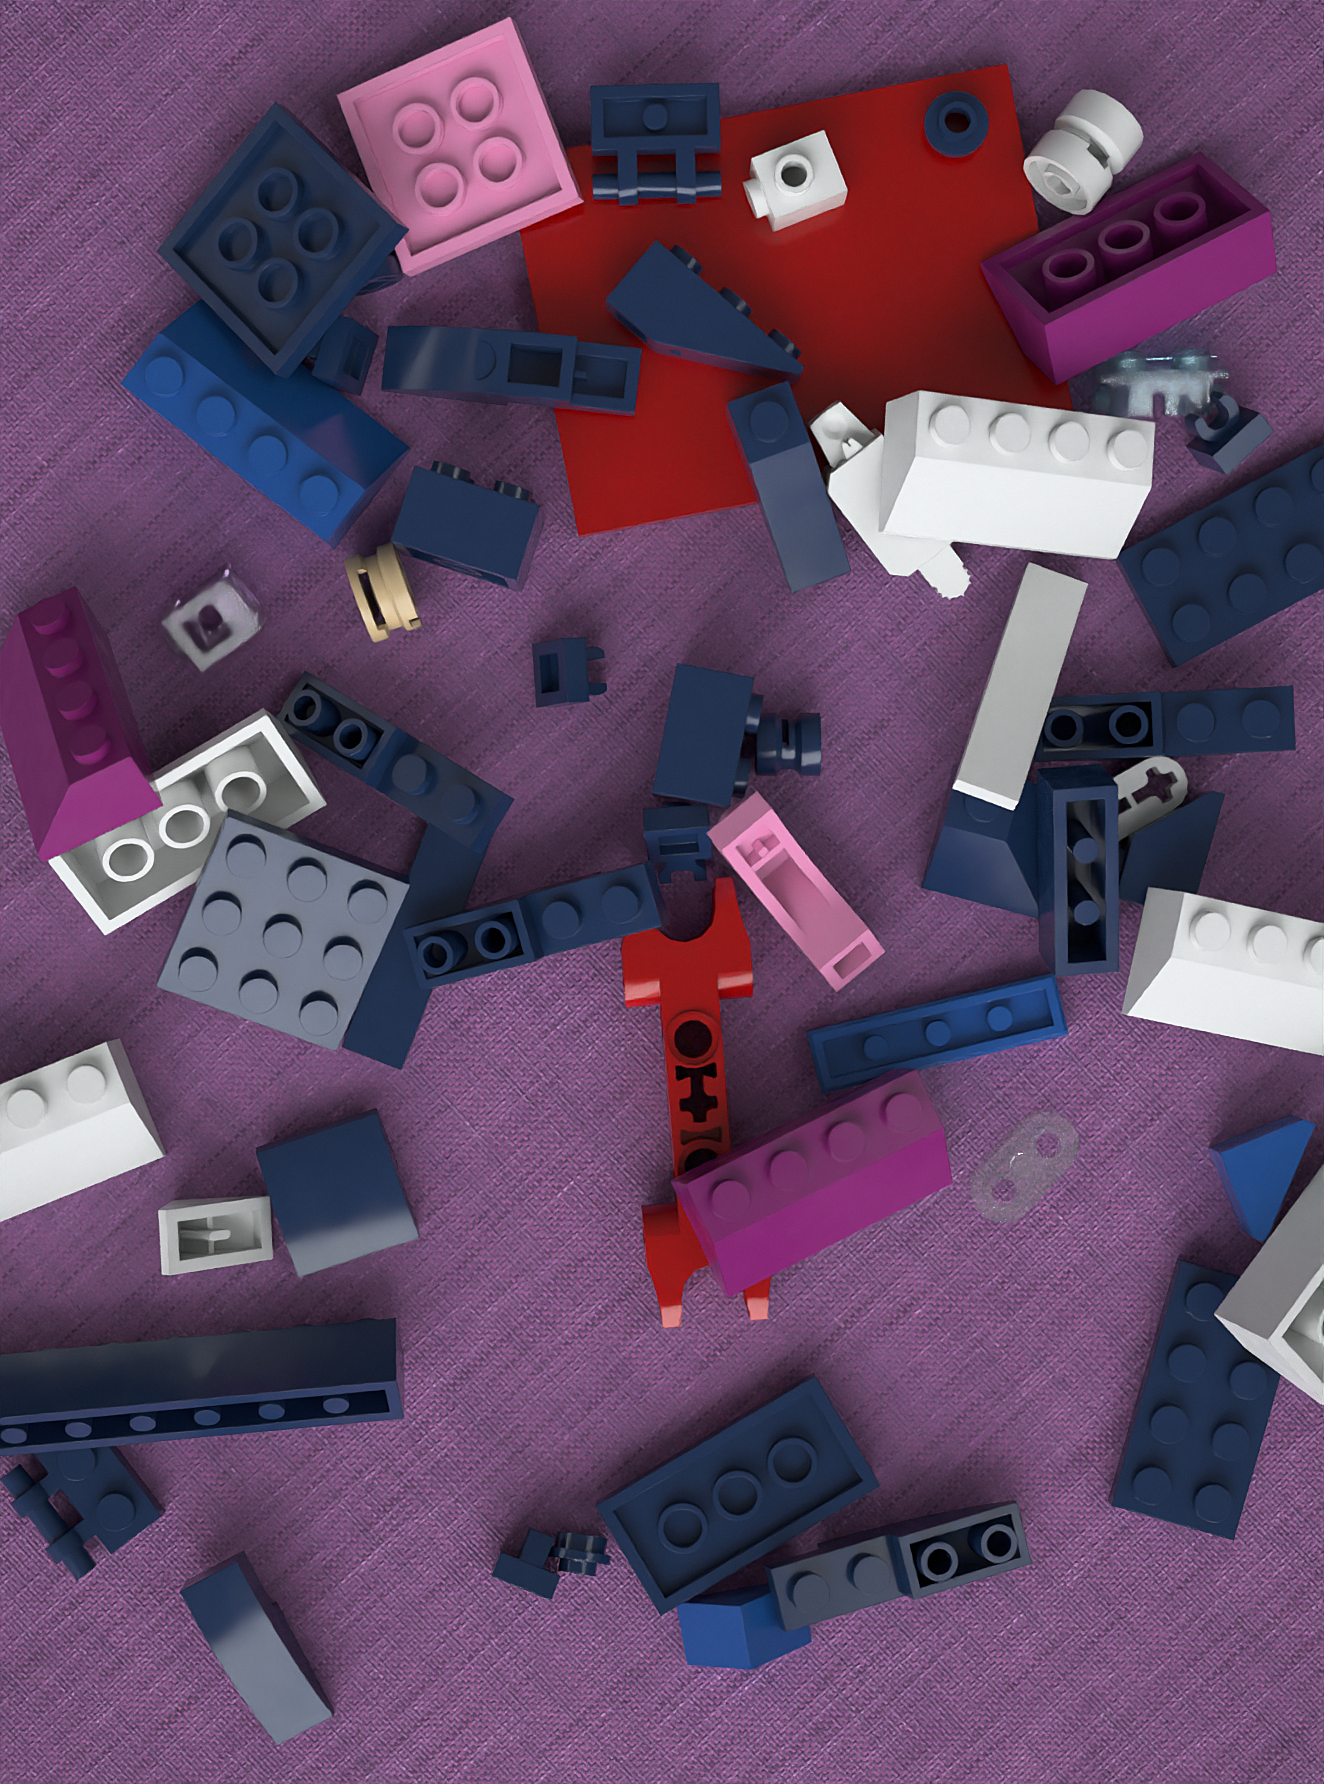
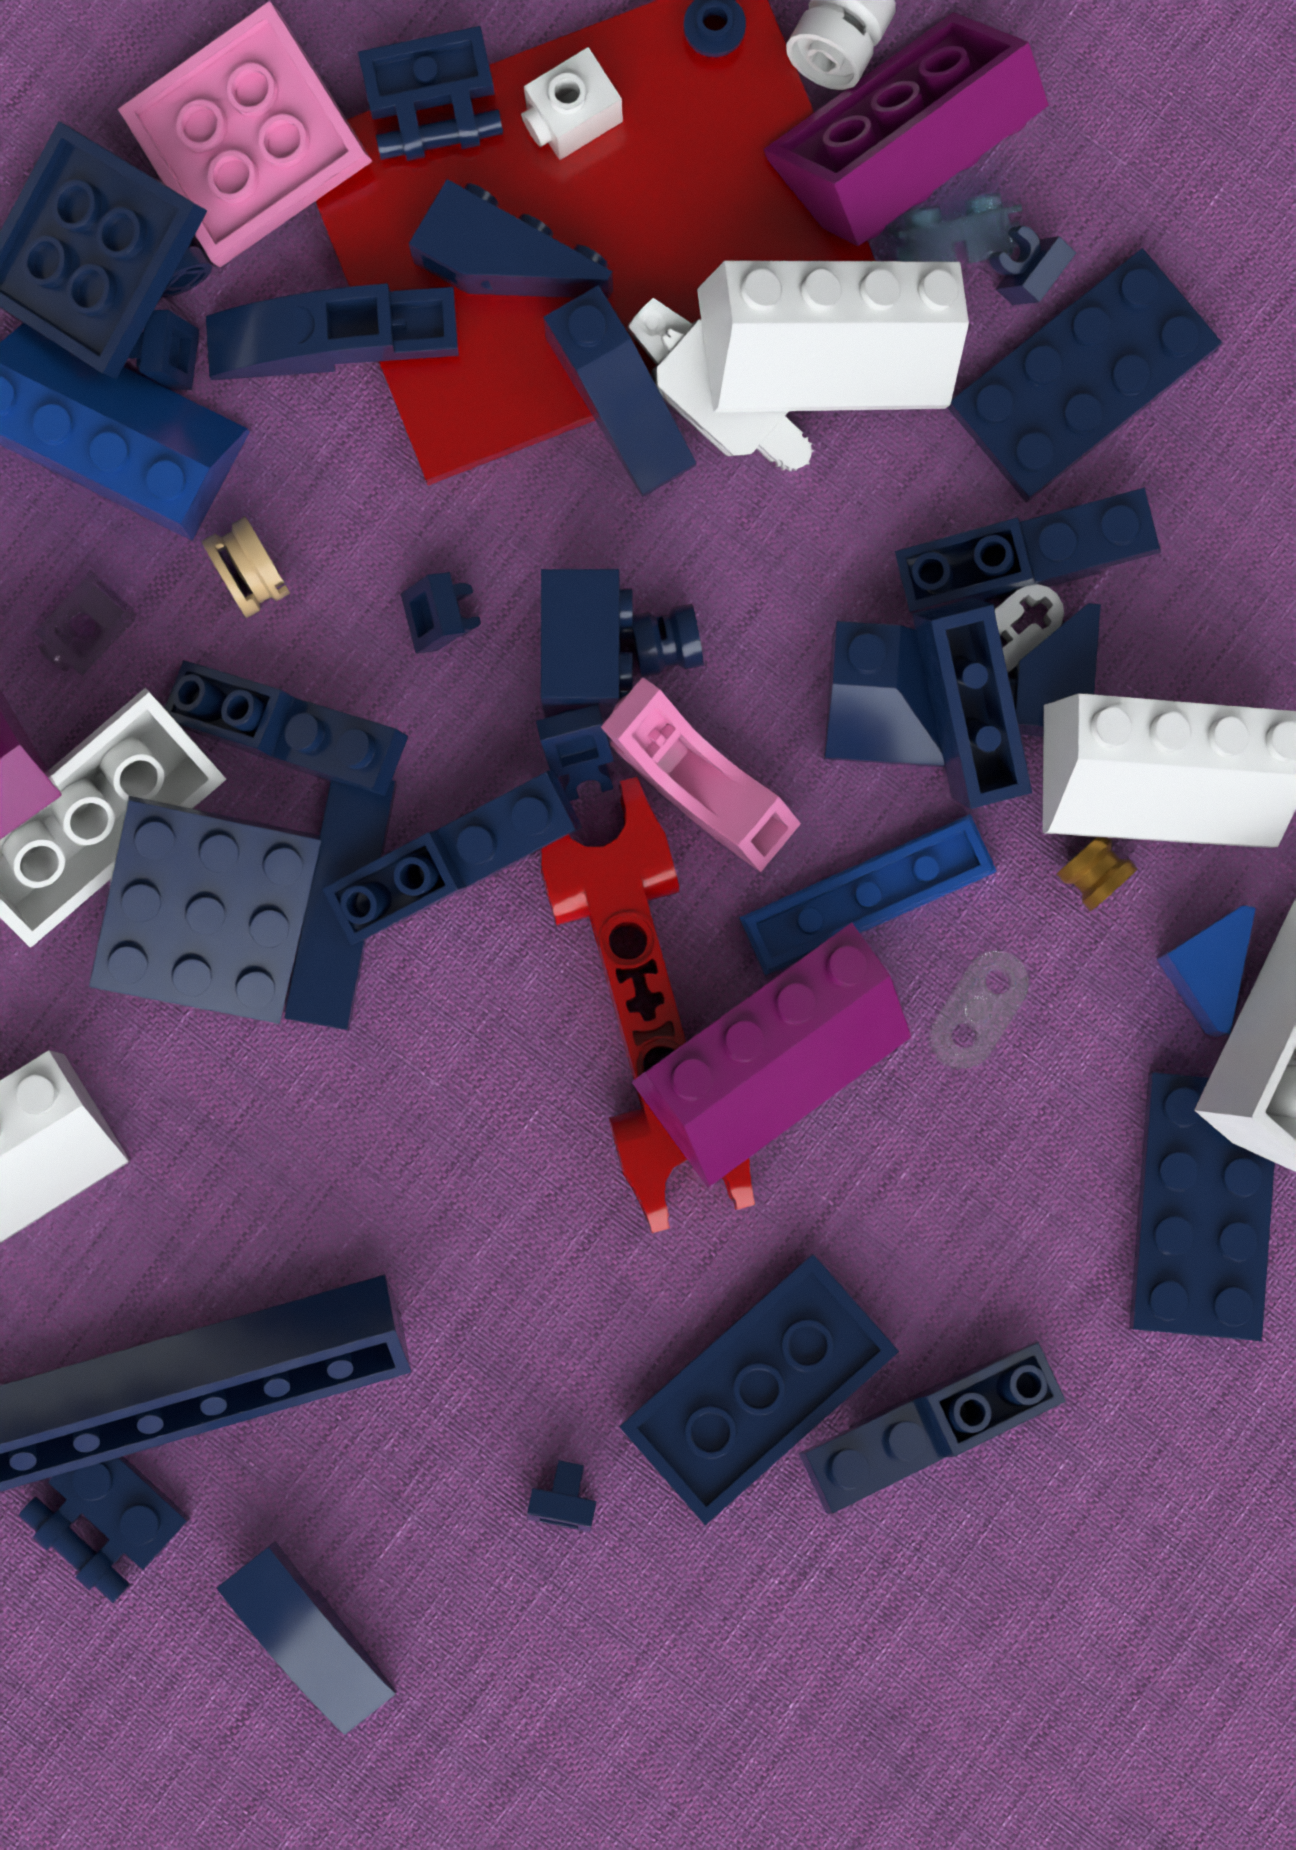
camera: 10 degrees left, 5 degrees down
(214, 1233) = (190, 1224): white slope -> none
(337, 1192) = (305, 1163): dark blue slope -> none
(469, 526) = (317, 485): dark blue brick -> none
(580, 1553) = (612, 1478): dark blue plate -> none
(736, 1629) = (784, 1526): blue slope -> none
(1020, 686) = (881, 539): white tile -> none
(1167, 1055) = (1097, 871): none -> pearl gold wheel

